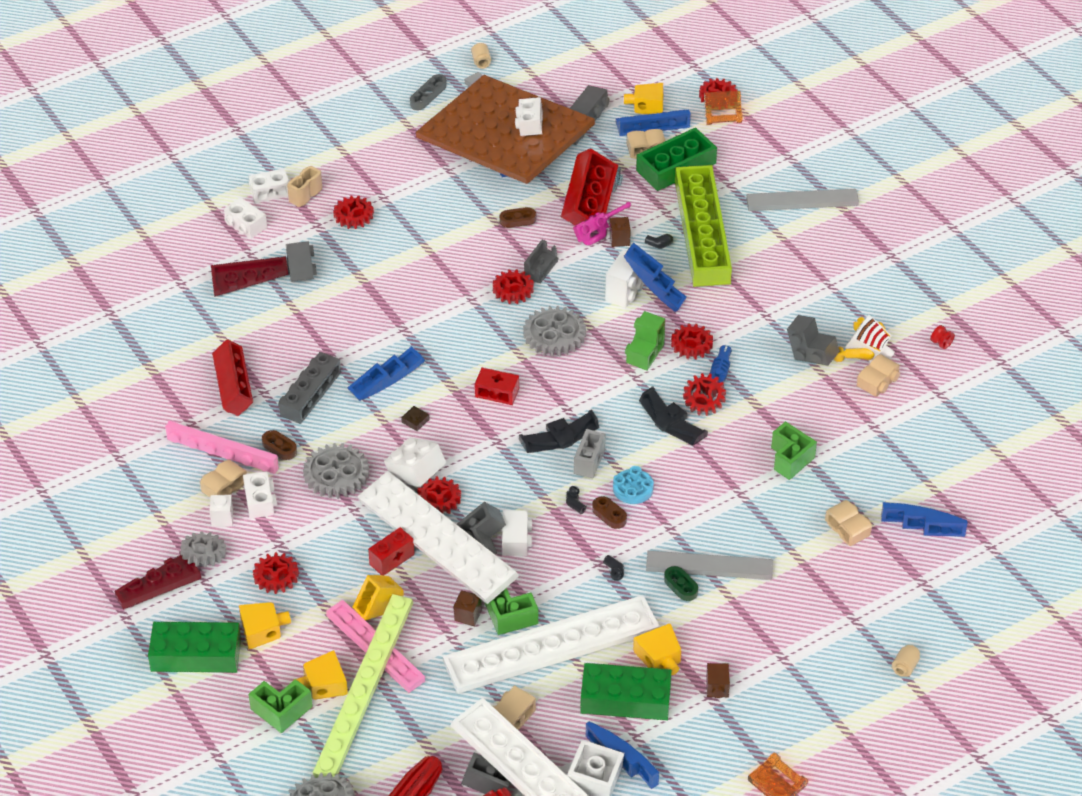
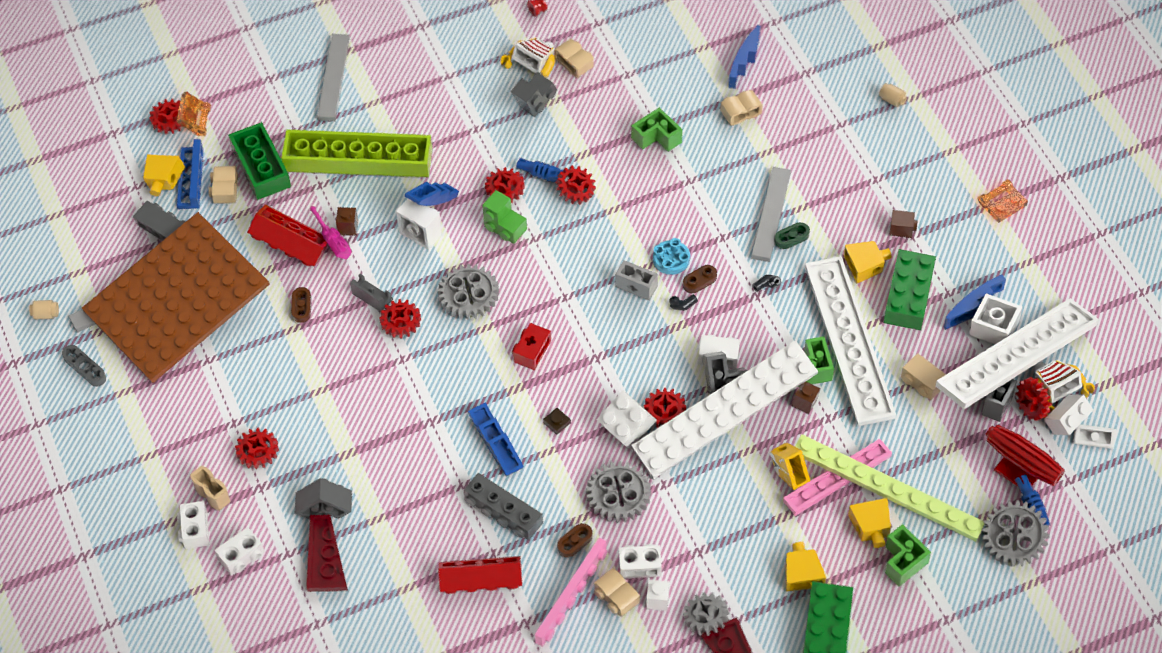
camera: 80 degrees left, 10 degrees up
(275, 573) = (752, 552): red gear -> none
(391, 551) = (730, 452): red brick -> none
(529, 116) = (184, 259): white brick -> none
(559, 434) = (599, 304): black plate -> none
(659, 242) = (364, 191): black arm -> none
(670, 418) = (593, 217): black plate -> none

